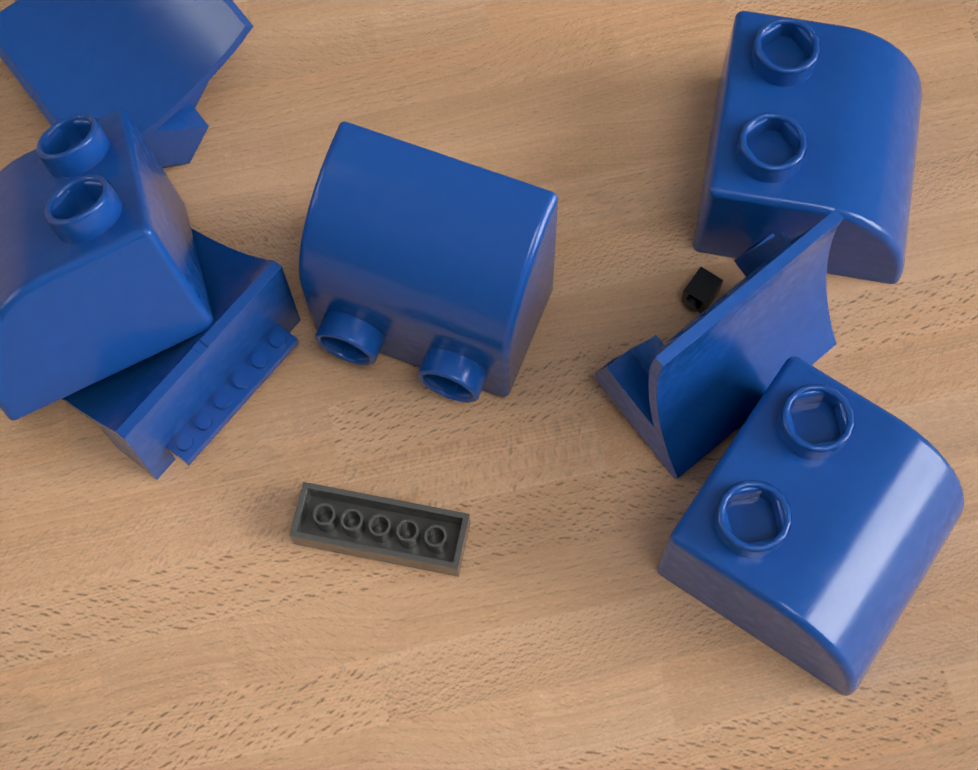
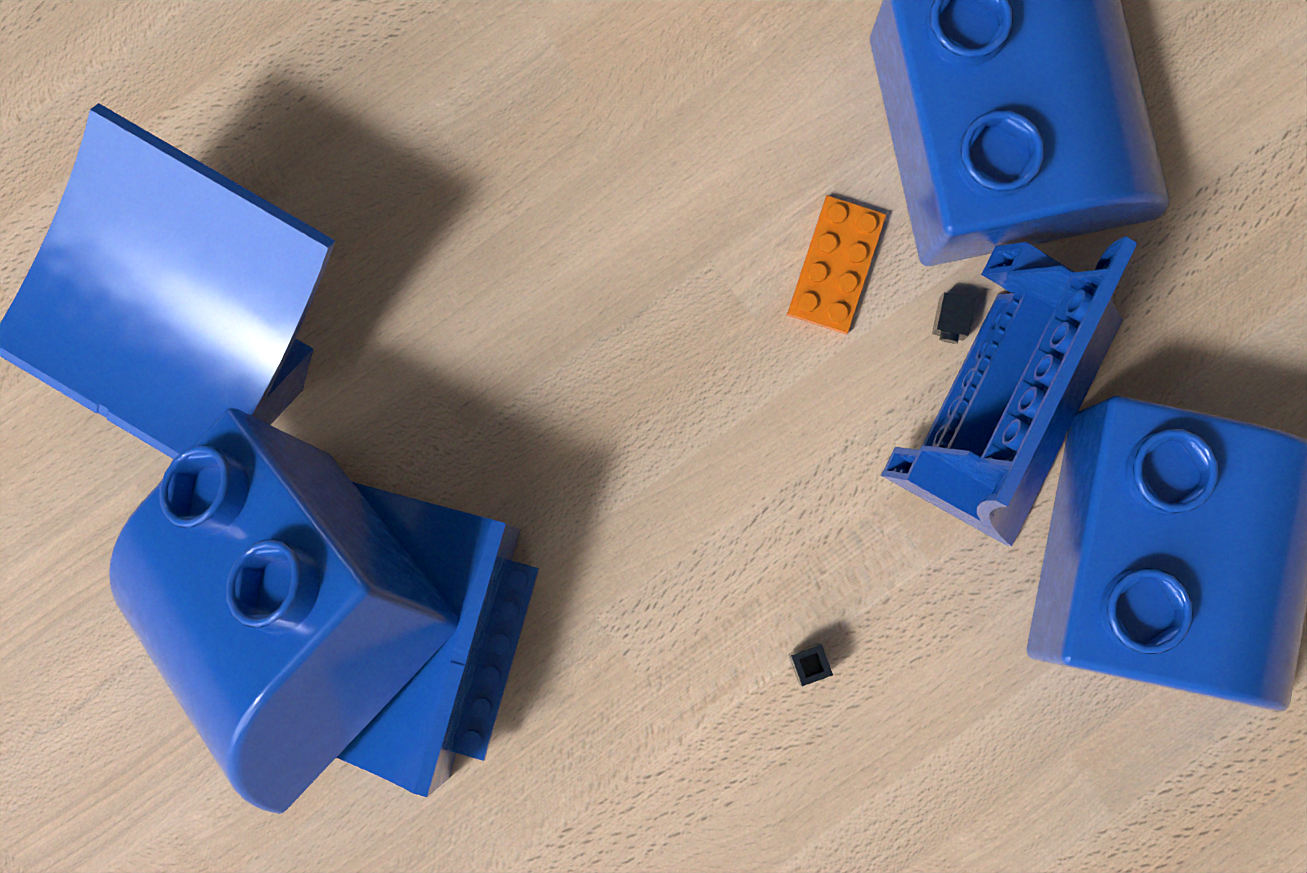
camera: 20 degrees left, 15 degrees up
(380, 529) = (723, 739): dark grey brick -> none
(426, 262) = (663, 445): blue piece -> none
(476, 499) = (810, 664): none -> black brick
(626, 223) = (836, 265): none -> orange plate

